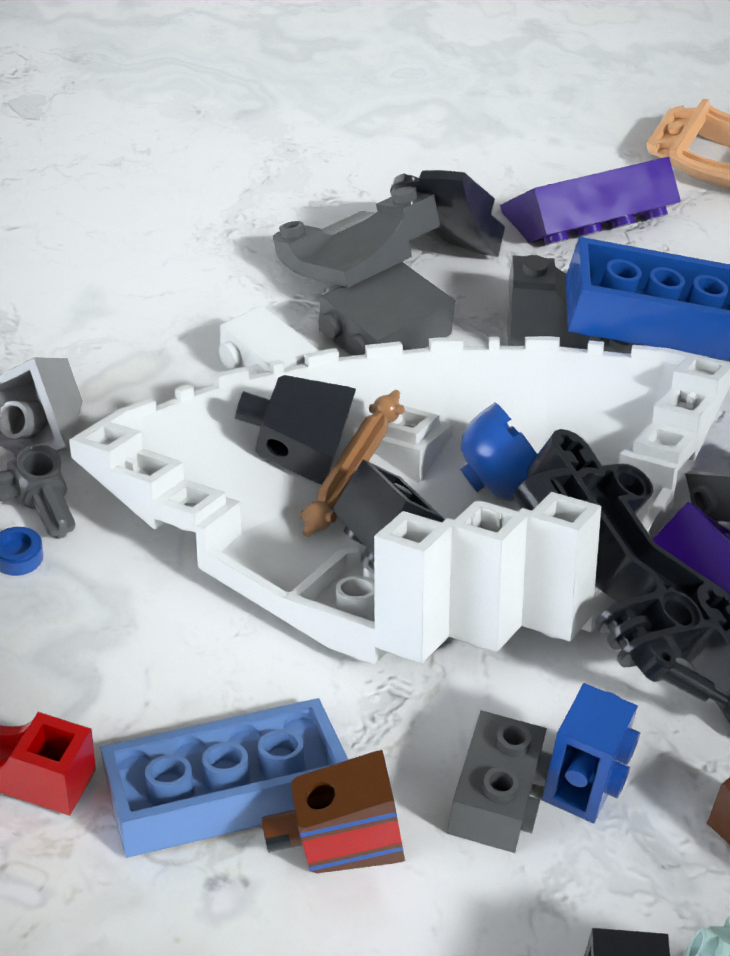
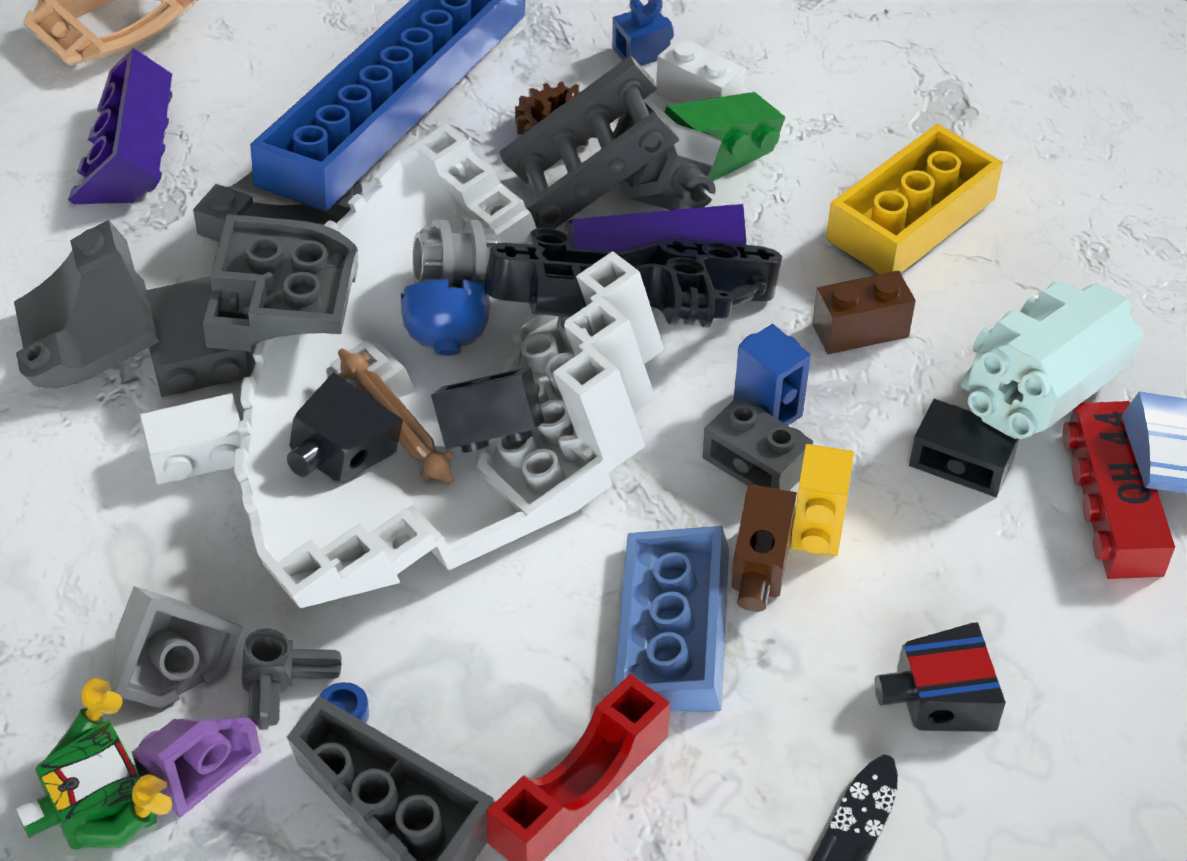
camera: 65 degrees left, 5 degrees up
(433, 852) = (822, 499): none -> yellow brick
(444, 316) = (277, 281): none -> dark grey slope
(461, 207) = (122, 208): black brick -> none
(572, 410) = (450, 255): none -> light grey piece

